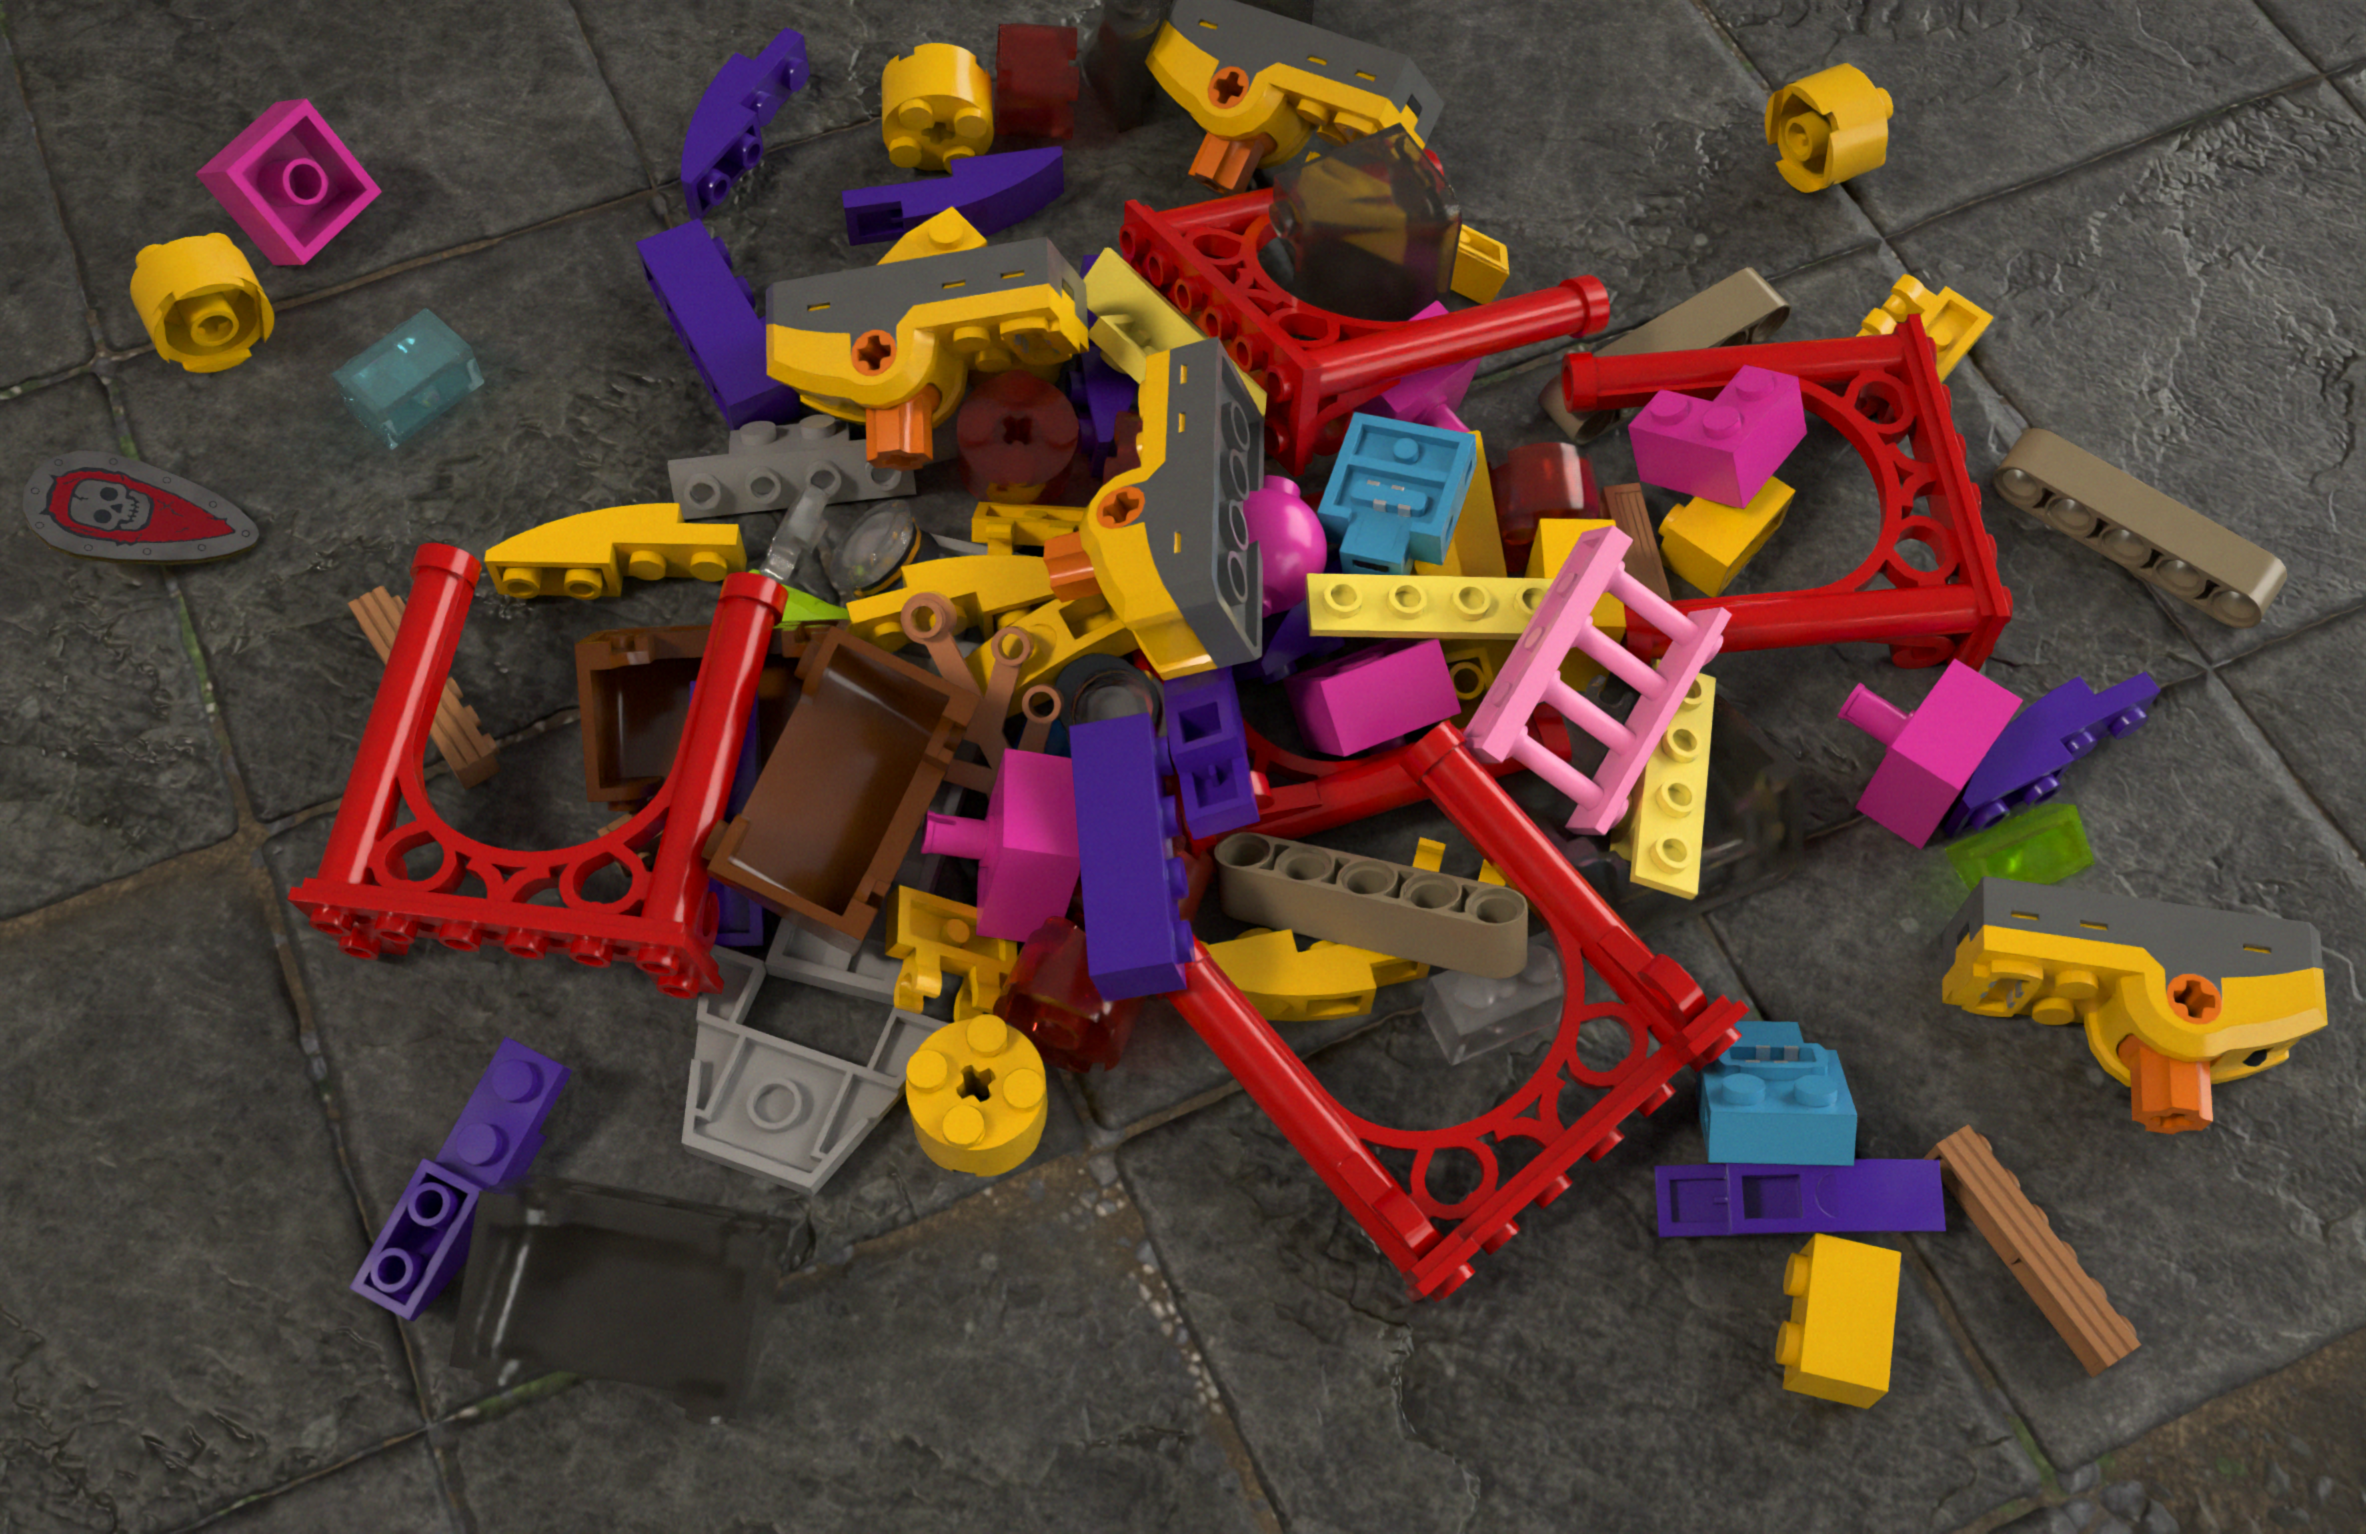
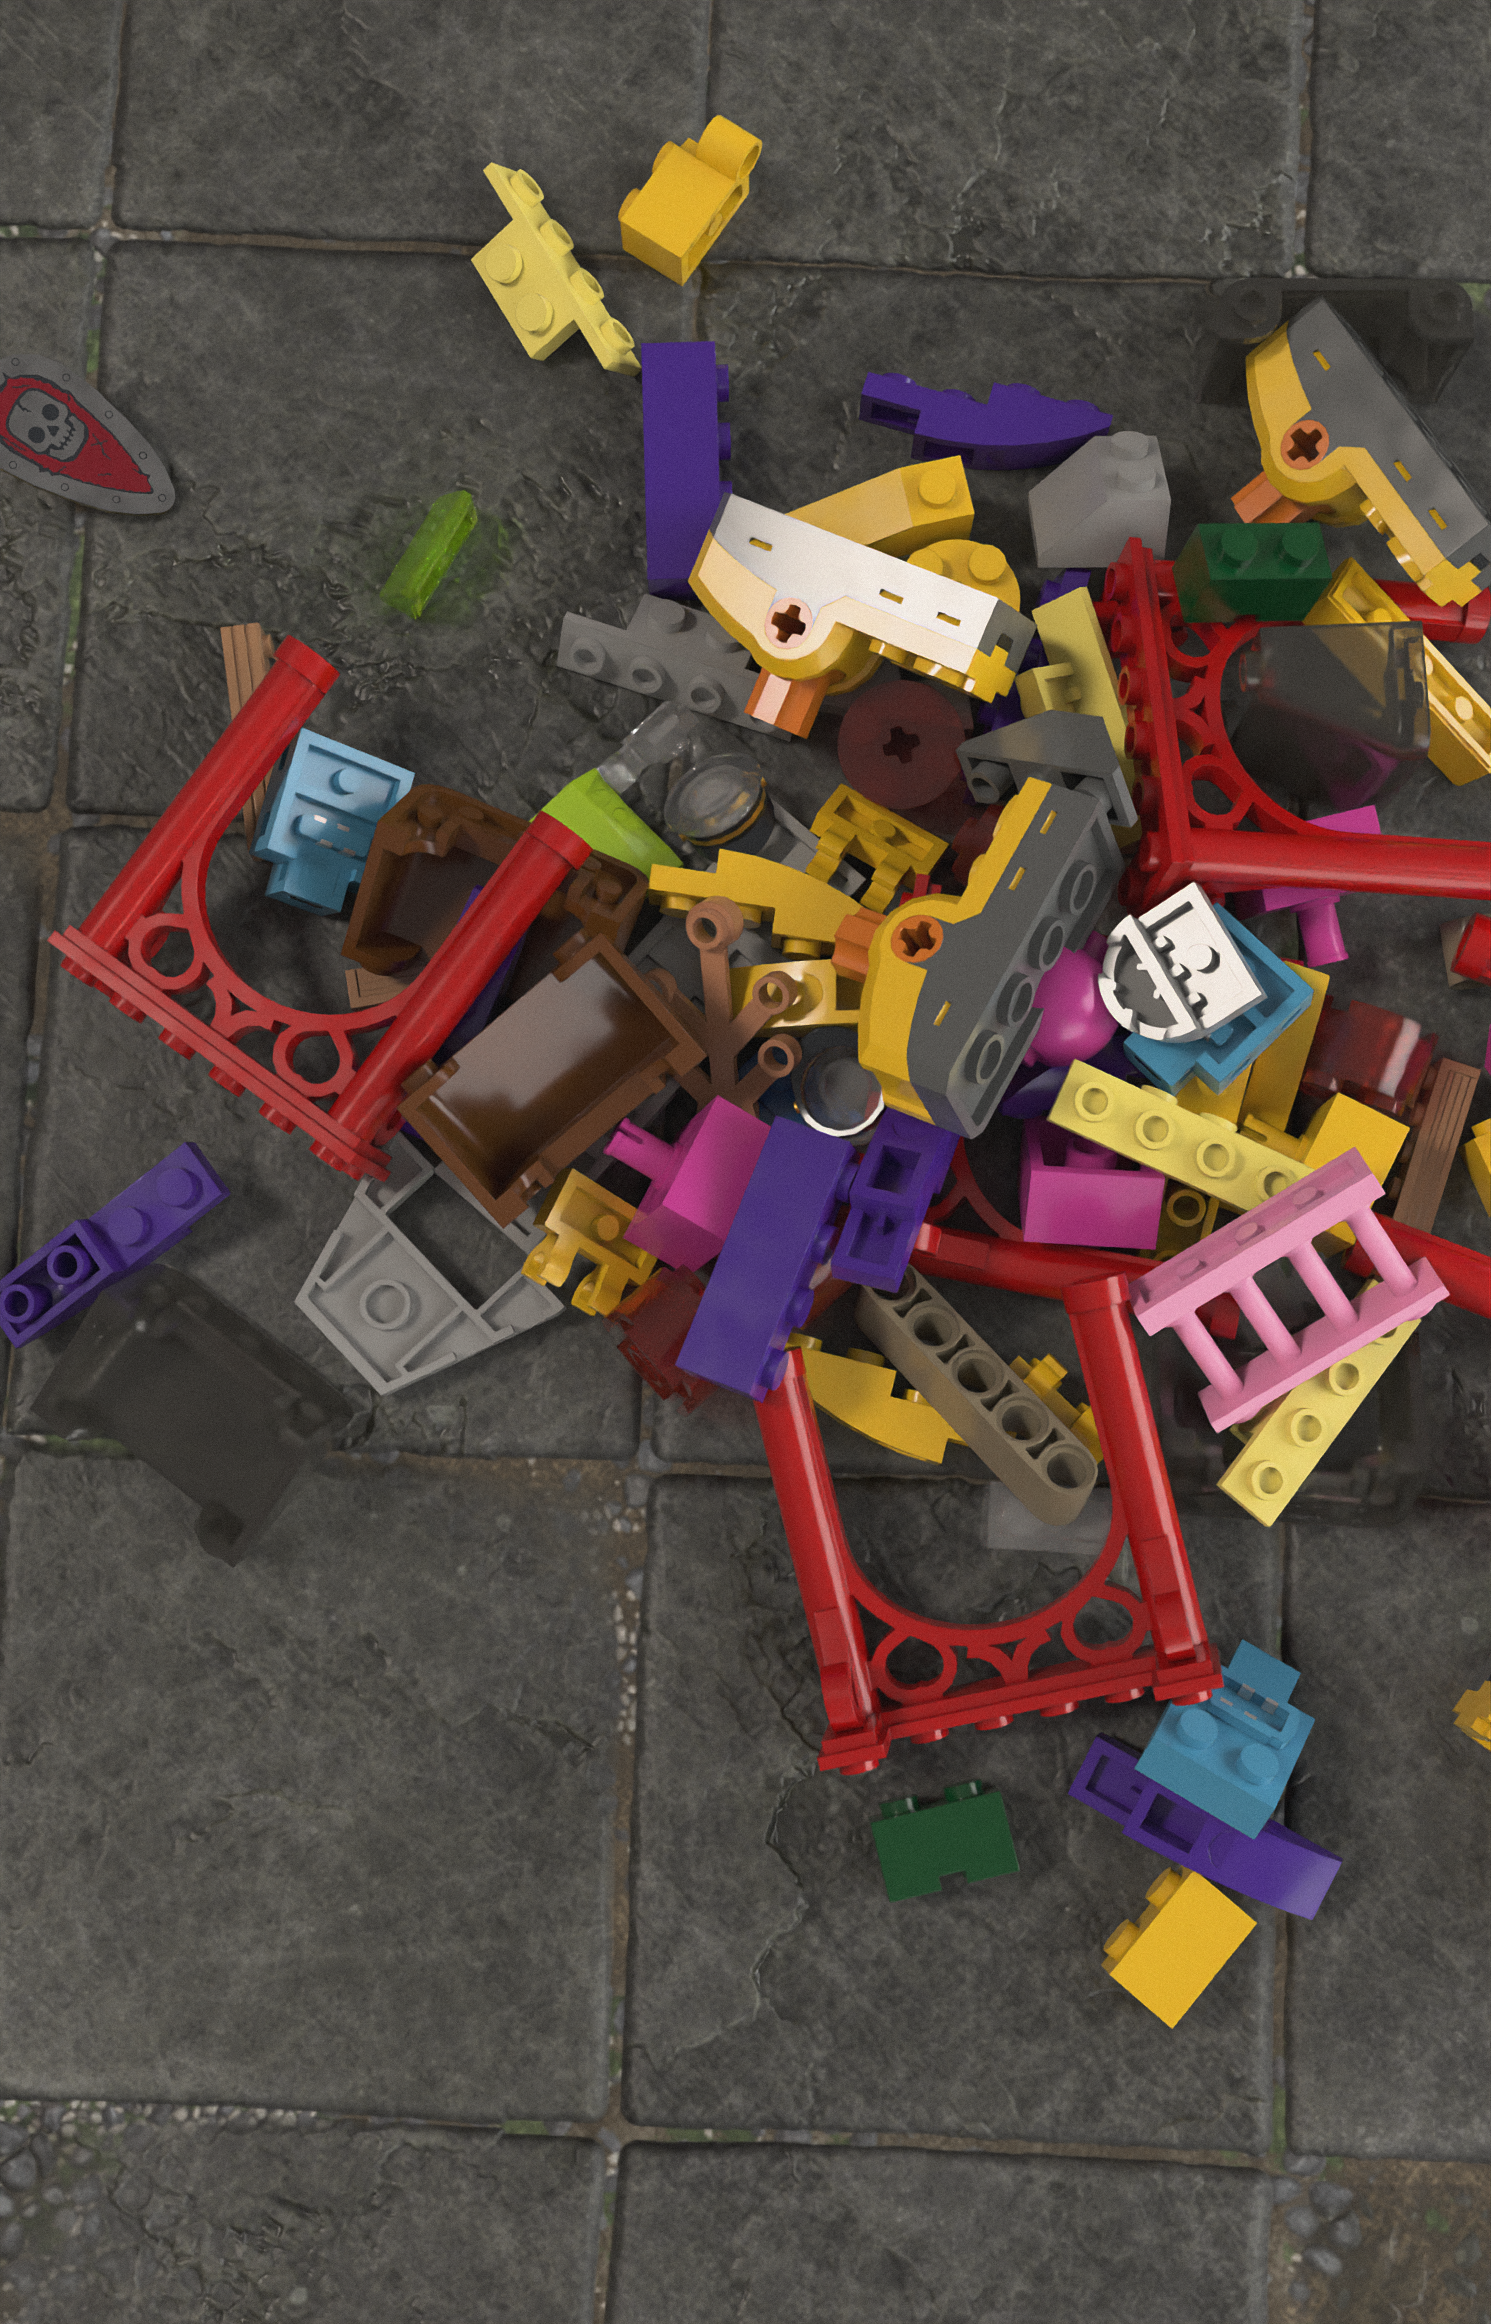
camera: 30 degrees right, 20 degrees up
(200, 302) = (207, 226): yellow brick -> none
(289, 182) = (339, 120): dark pink brick -> none
(408, 378) = (369, 394): clear light blue brick -> none
(517, 712) = (323, 819): none -> dark azure piece
(520, 476) = (430, 553): none -> clear neon green slope
(522, 249) = (541, 282): none -> light yellow bracket
(595, 549) = (461, 673): yellow slope -> none
(625, 140) = (689, 198): none -> yellow hinge
(726, 126) = (792, 231): dark purple slope -> none
(936, 107) = (1010, 312): yellow brick -> none
(985, 1060) = (527, 1359): yellow brick -> none
(1035, 81) = (1128, 318): clear red brick -> none
(1087, 198) = (1099, 500): none -> light grey slope
(1112, 385) = (1053, 748): none -> dark grey slope
(1232, 177) = (1251, 570): none -> dark green brick
(1355, 464) = (1176, 971): none -> slope
(1583, 1321) = (941, 1838): none -> dark green brick
(2033, 1252) = (1382, 1967): medium nougat piece -> none

